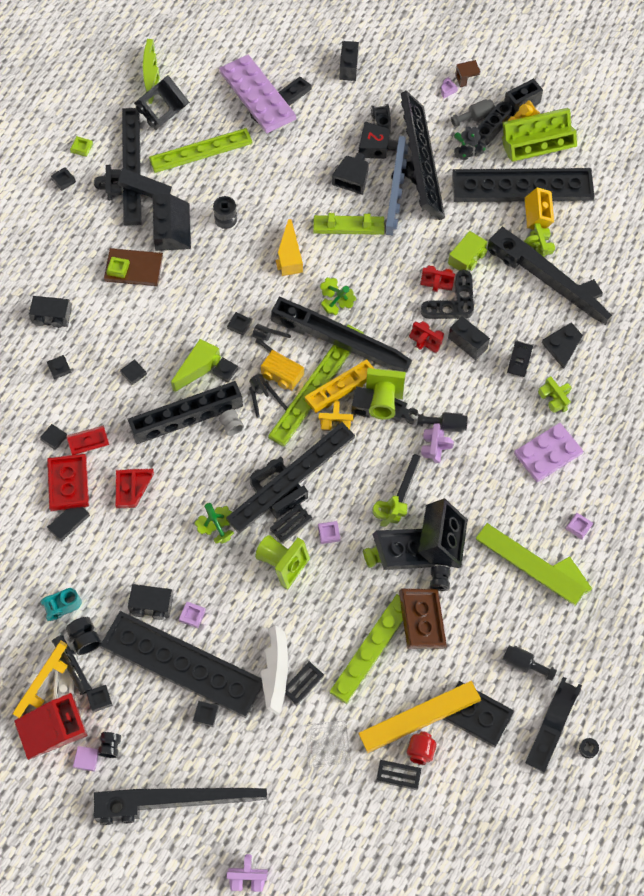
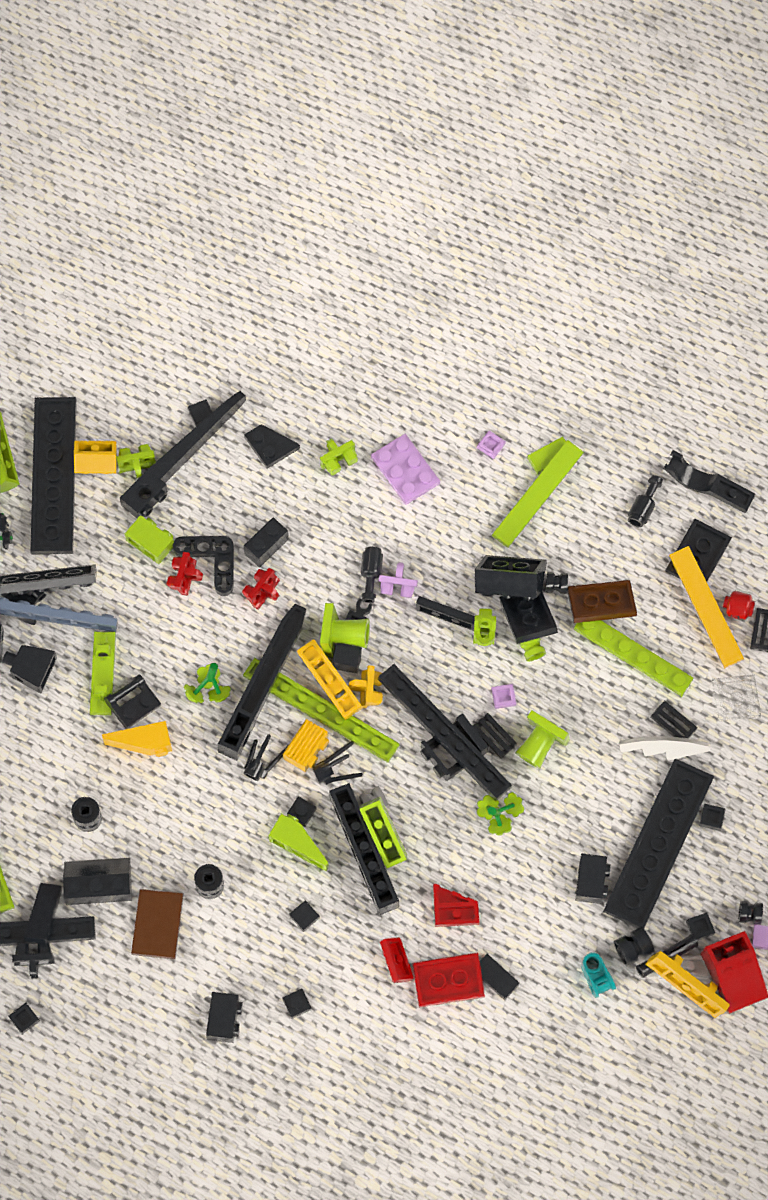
camera: 90 degrees left, 5 degrees up
(53, 436) = (389, 1002): black tile -> none
(117, 267) = (162, 939): lime tile -> none
(164, 298) = (209, 881): none -> black wheel
(192, 614) = (602, 836): lavender tile -> none
(197, 424) = (383, 832): none -> lime brick
(239, 323) = (239, 797): black tile -> none
(318, 248) = (135, 708): none -> black plate
(523, 351) = (291, 483): black hips -> none
(587, 754) = (731, 446): black bush -> none

